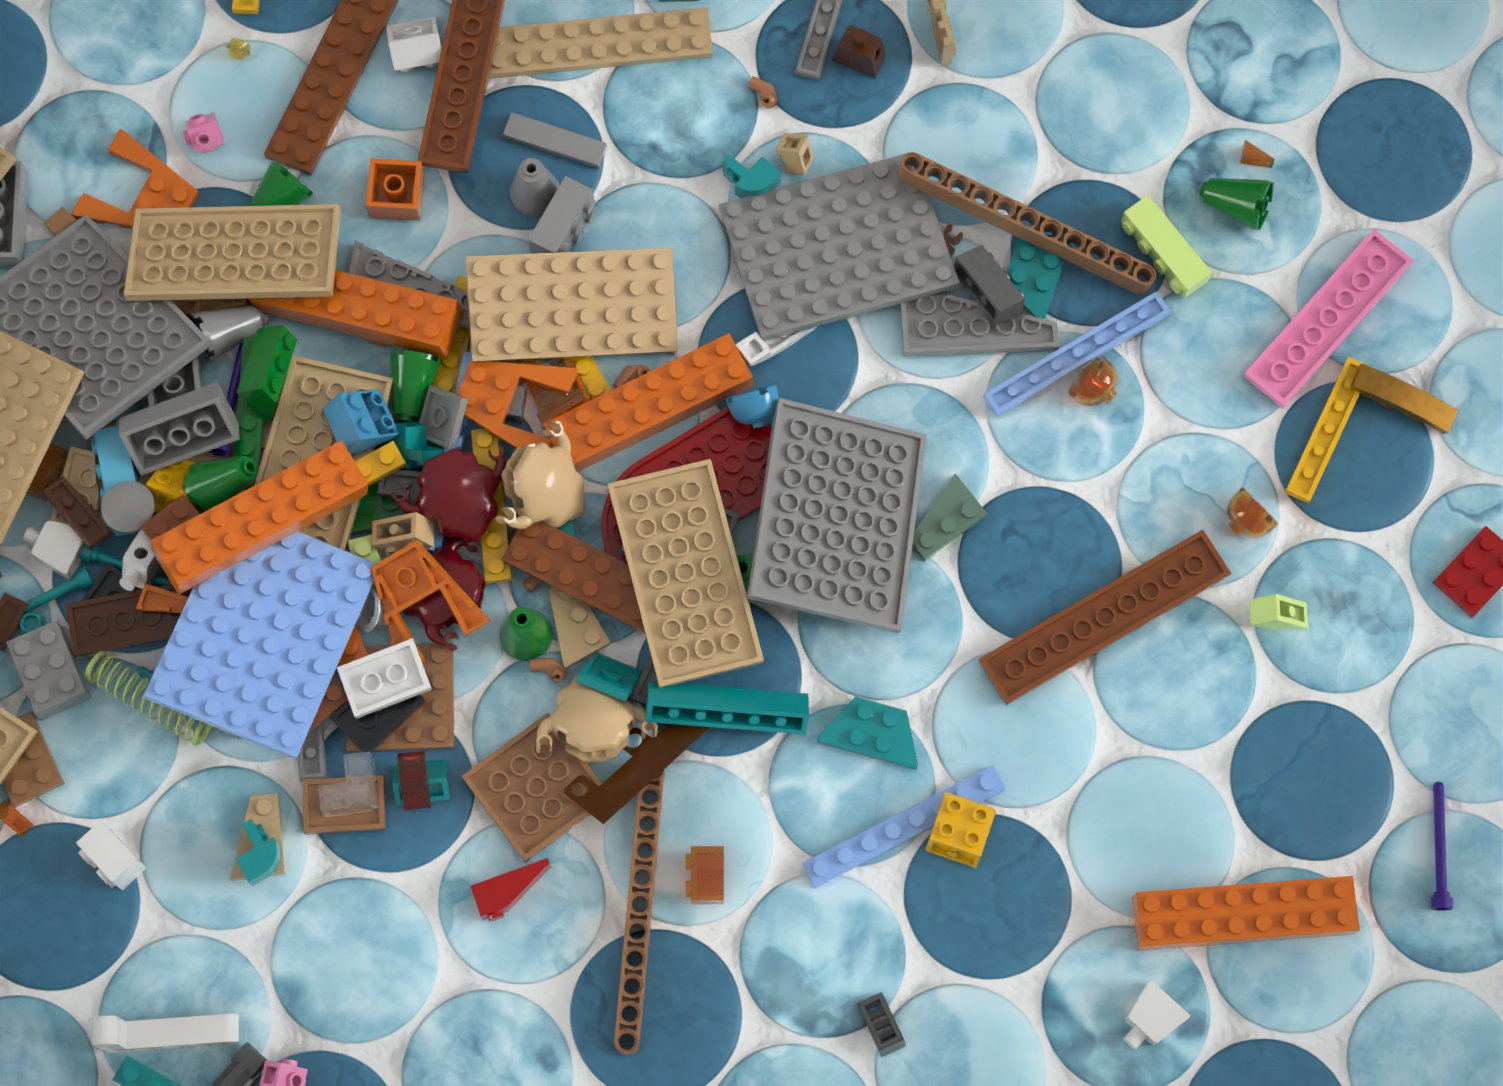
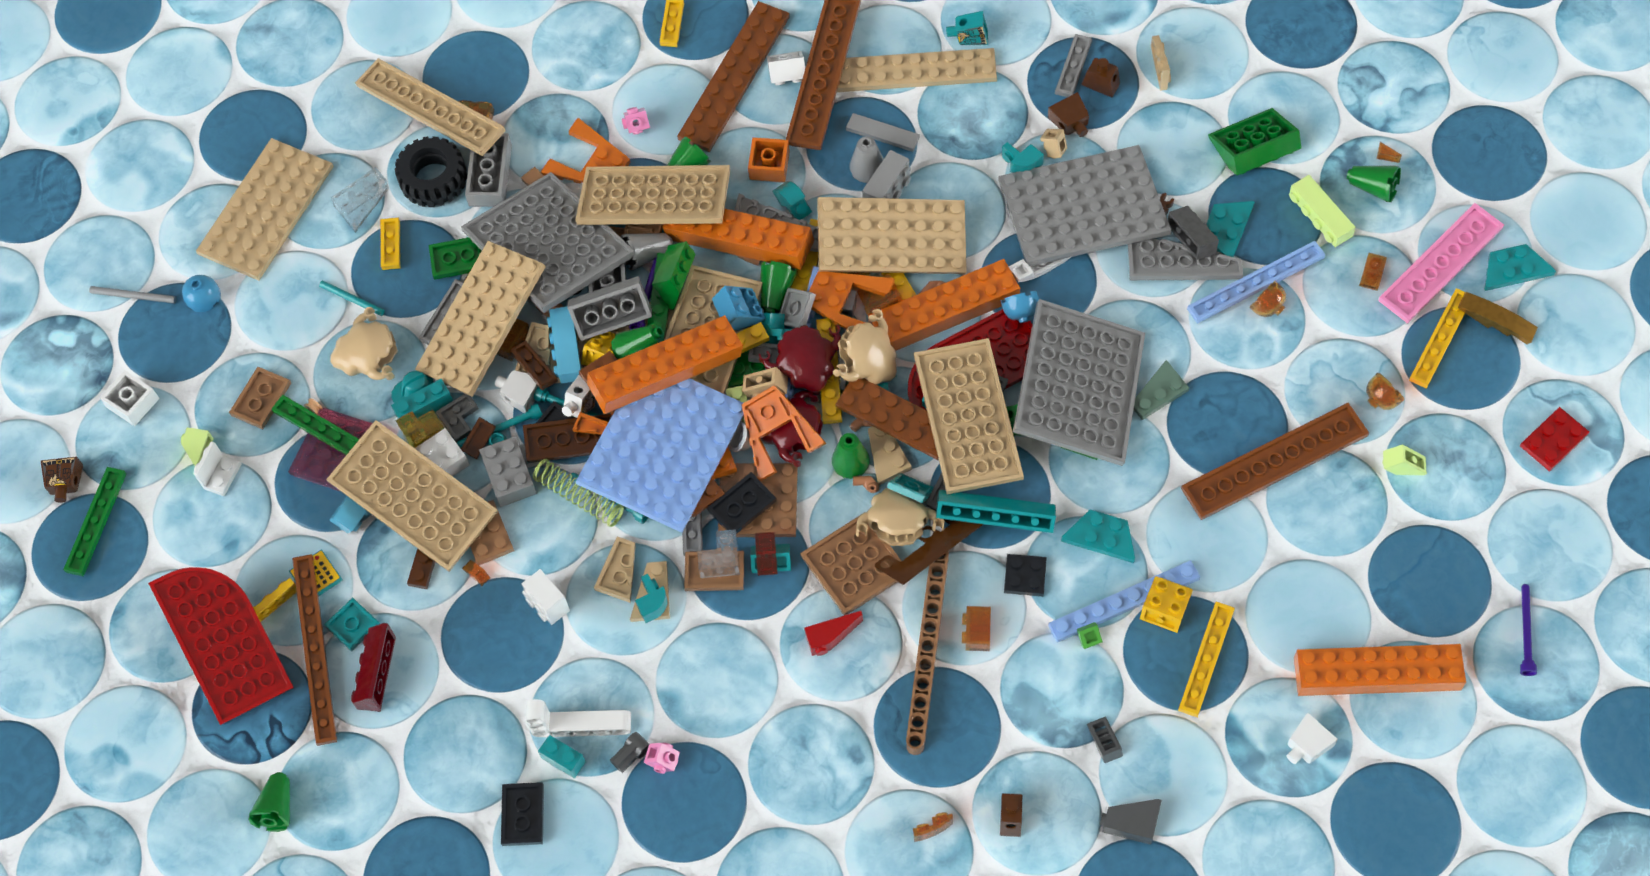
camera: 10 degrees right, 10 degrees down
(127, 506) = (570, 359): light grey dish -> none
(210, 810) = (618, 570): none -> tan wing
(238, 48) = (662, 68): clear yellow plate -> none
(384, 678) = (748, 480): white plate -> none
(431, 248) = (792, 197): none -> teal brick
(766, 91) = (1034, 103): nougat arm -> none
(769, 794) = (1025, 575): none -> black plate
(817, 109) = (1070, 115): none -> reddish brown torso
(858, 879) = (1089, 635): none -> bright green plate
(1015, 906) = (1206, 659): none -> yellow plate
(1019, 212) = (1191, 178): medium nougat beam -> none
(1074, 142) = (1256, 141): none -> green slope
(1235, 334) = (1373, 271): none -> clear orange slope
(1428, 320) = (1515, 266): none -> teal wing

